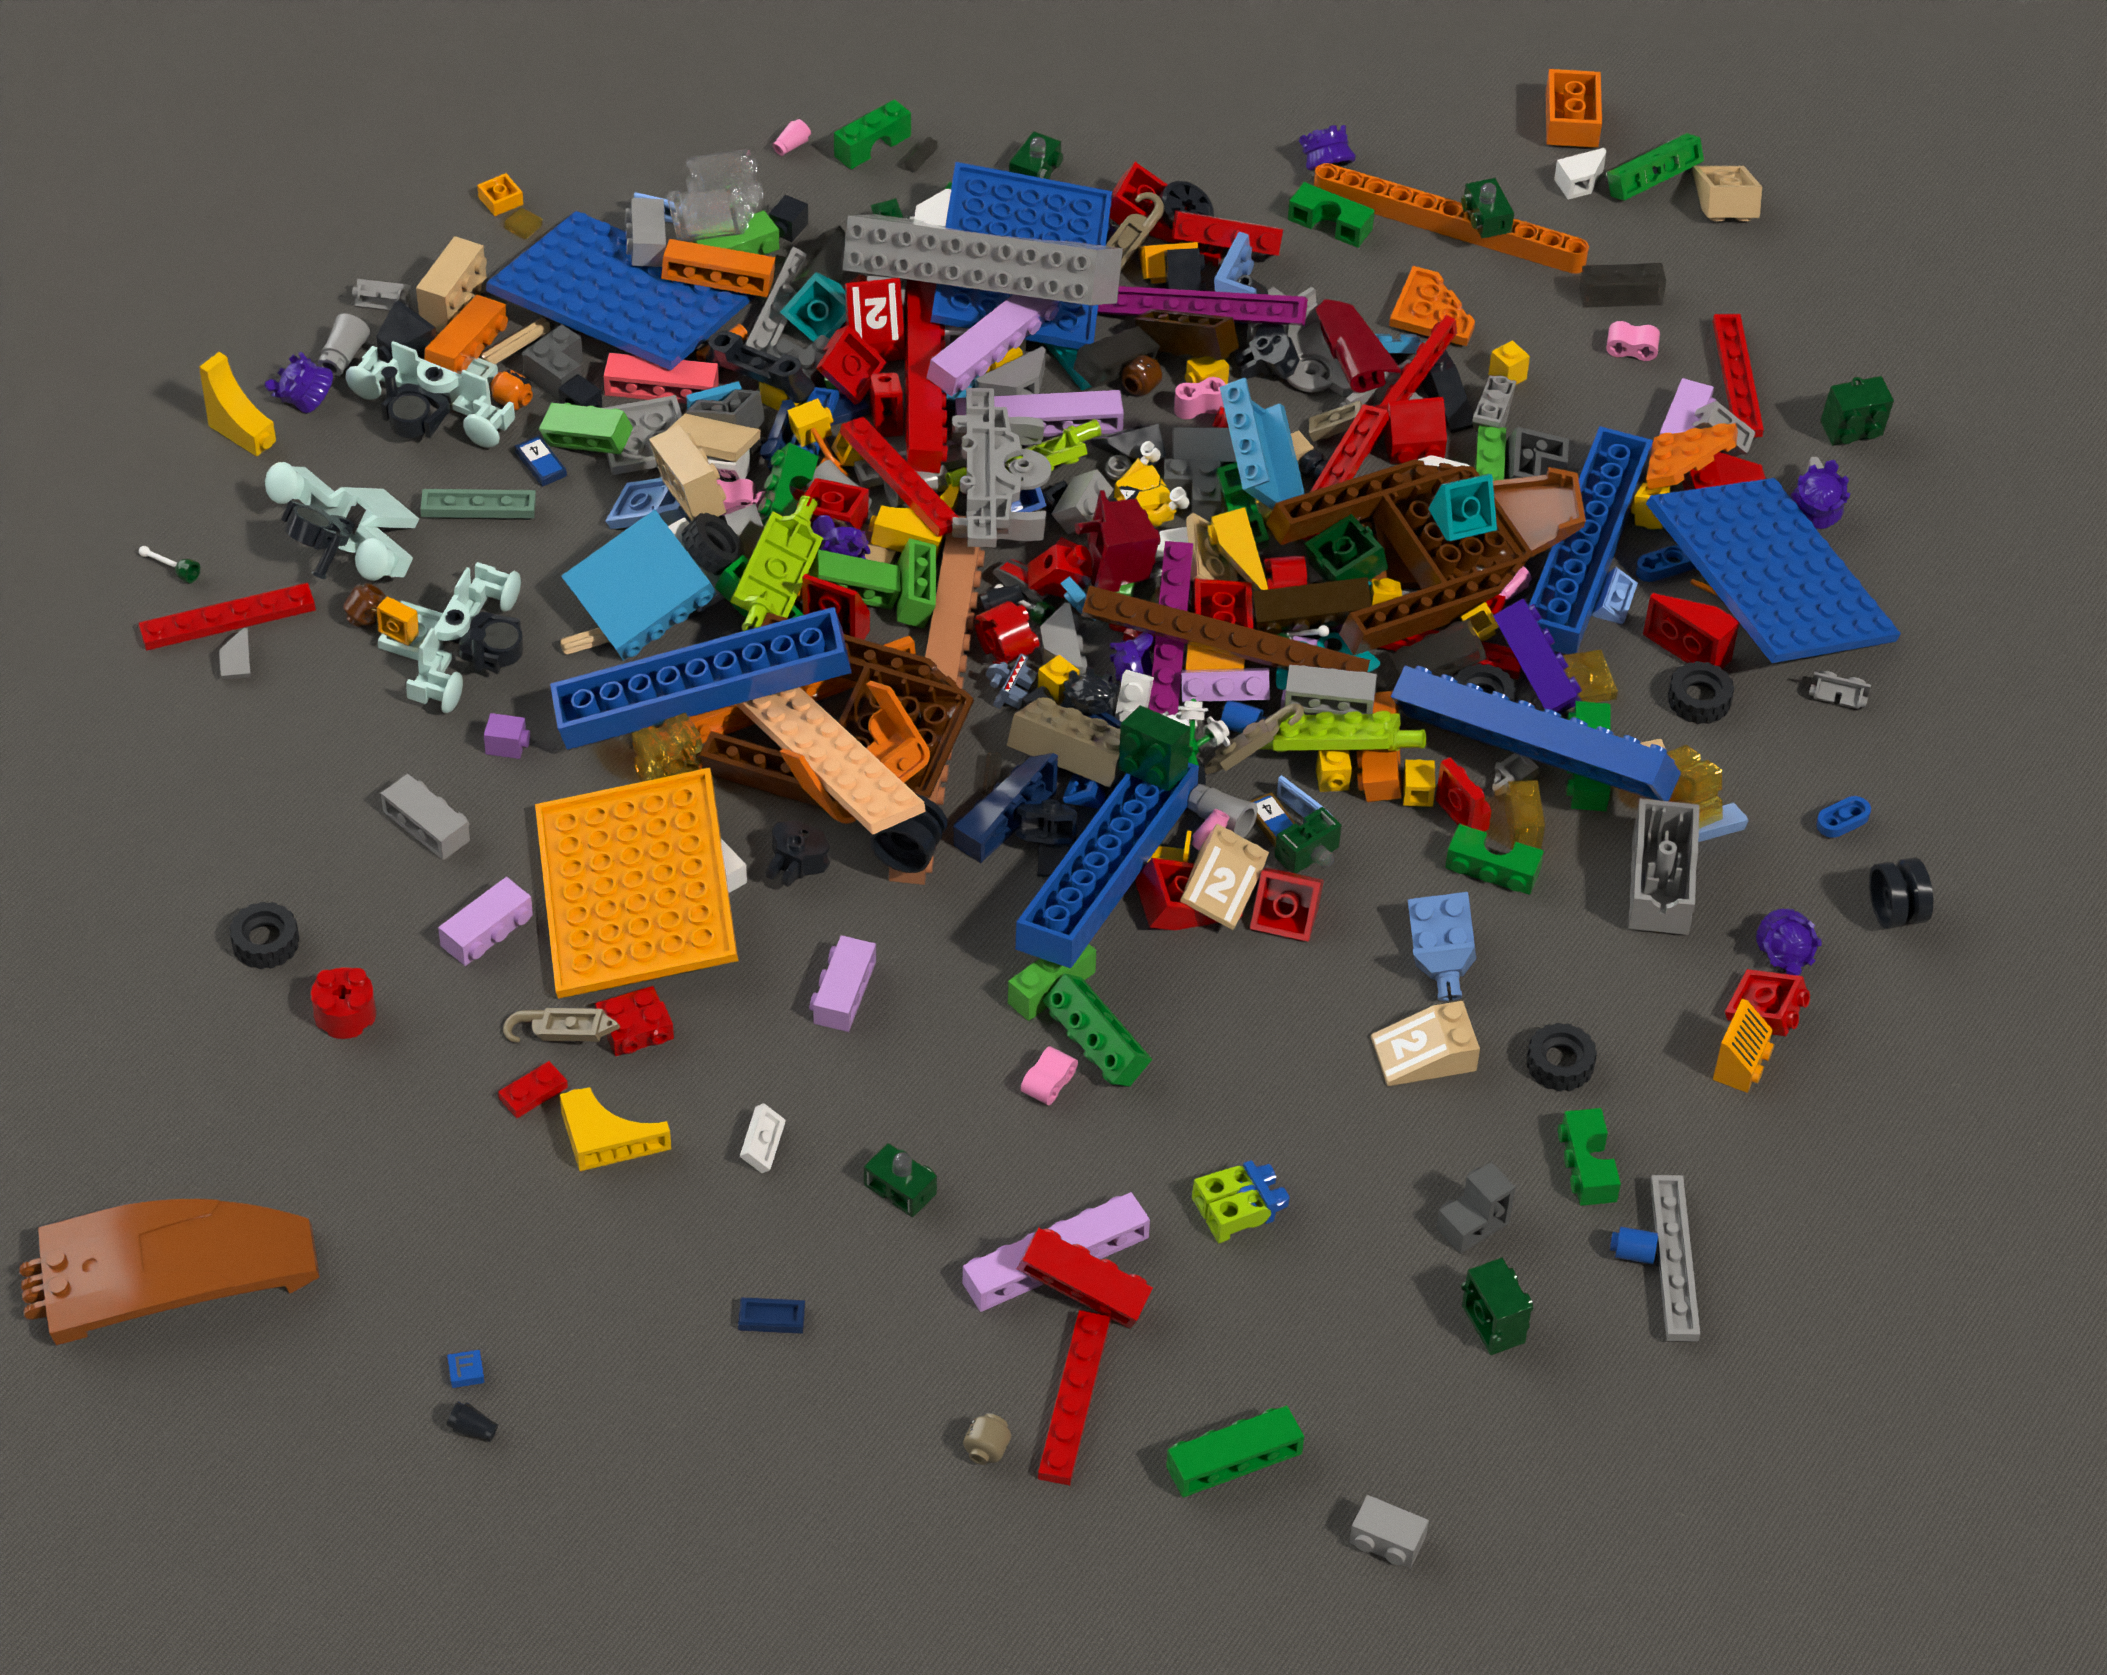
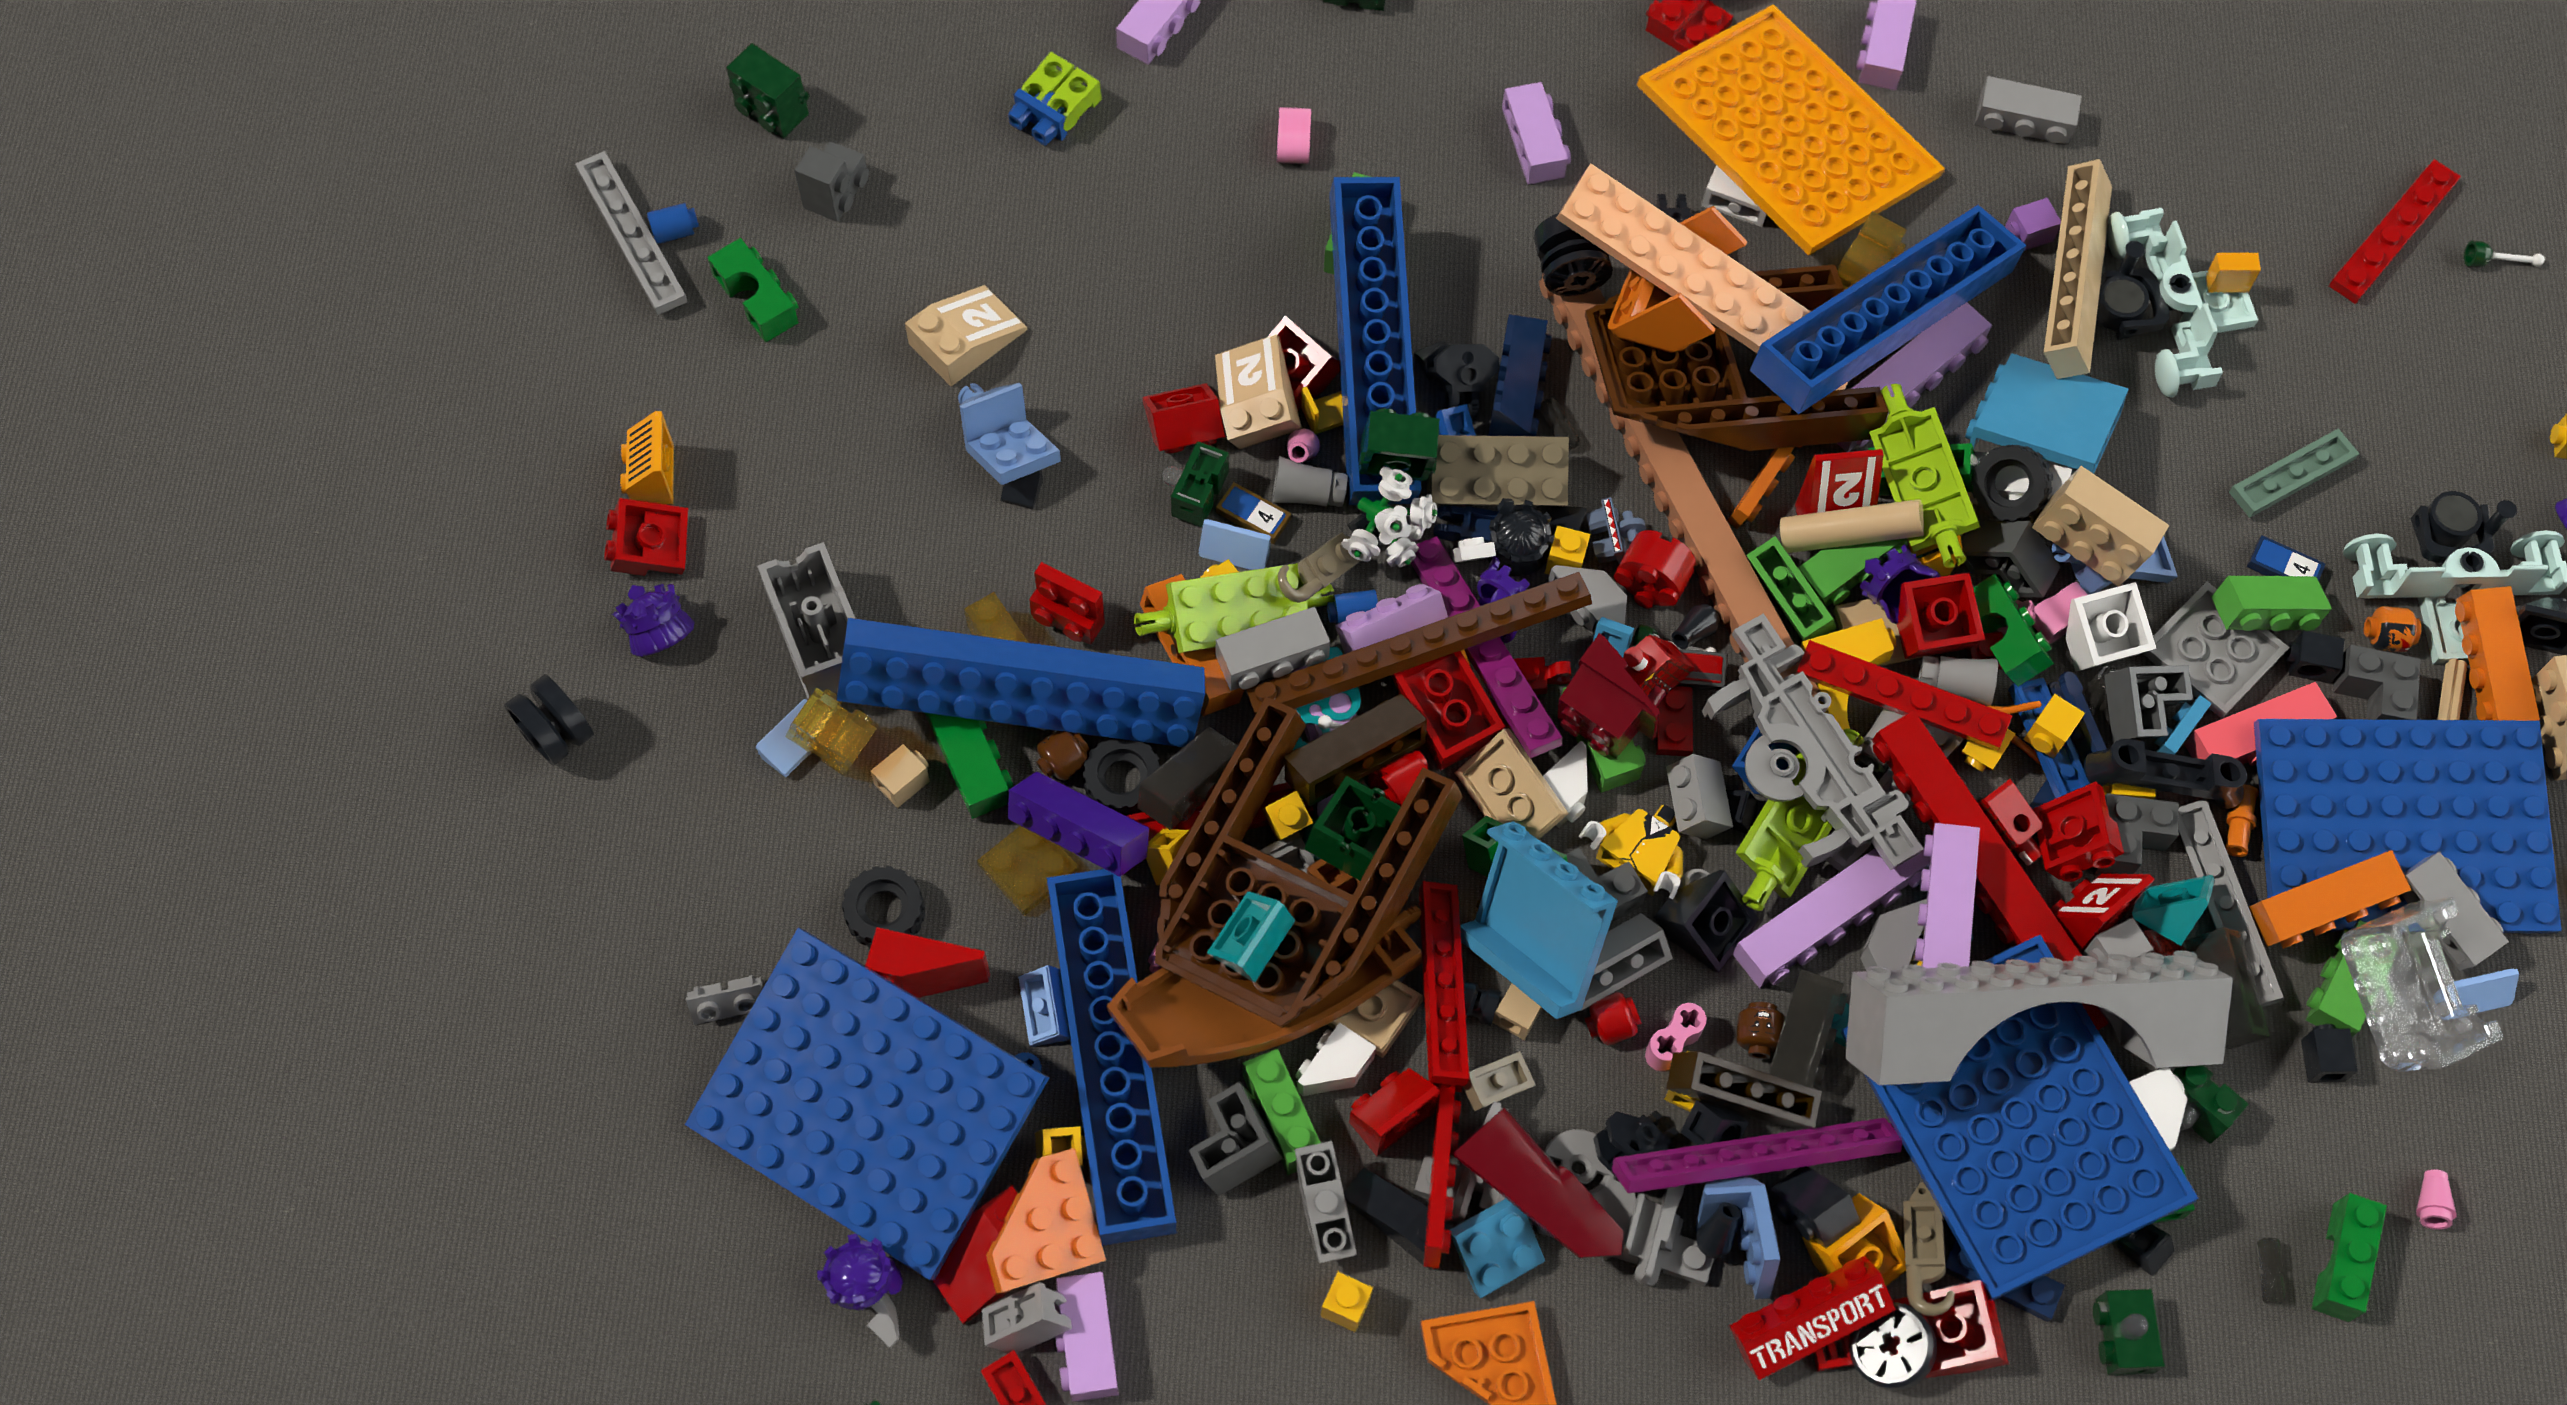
camera: 150 degrees right, 15 degrees up
(236, 657) = (2345, 186): light grey slope -> none
(325, 522) = (2373, 401): light aqua piece -> none
(362, 604) = (2282, 287): reddish brown head -> none
(515, 667) = (2078, 270): none -> tan brick
(719, 438) = (2132, 633): tan tile -> none
(850, 573) = (1852, 526): none -> tan brick
(1096, 1030) = (1273, 185): green brick -> none
(1237, 545) = (1488, 778): yellow slope -> none
(1419, 783) = (1120, 612): yellow brick -> none
(1514, 870) = (976, 565): green arch -> none
(1566, 1037) = (826, 359): black tyre -> none
(1839, 819) = (653, 818): blue plate -> none

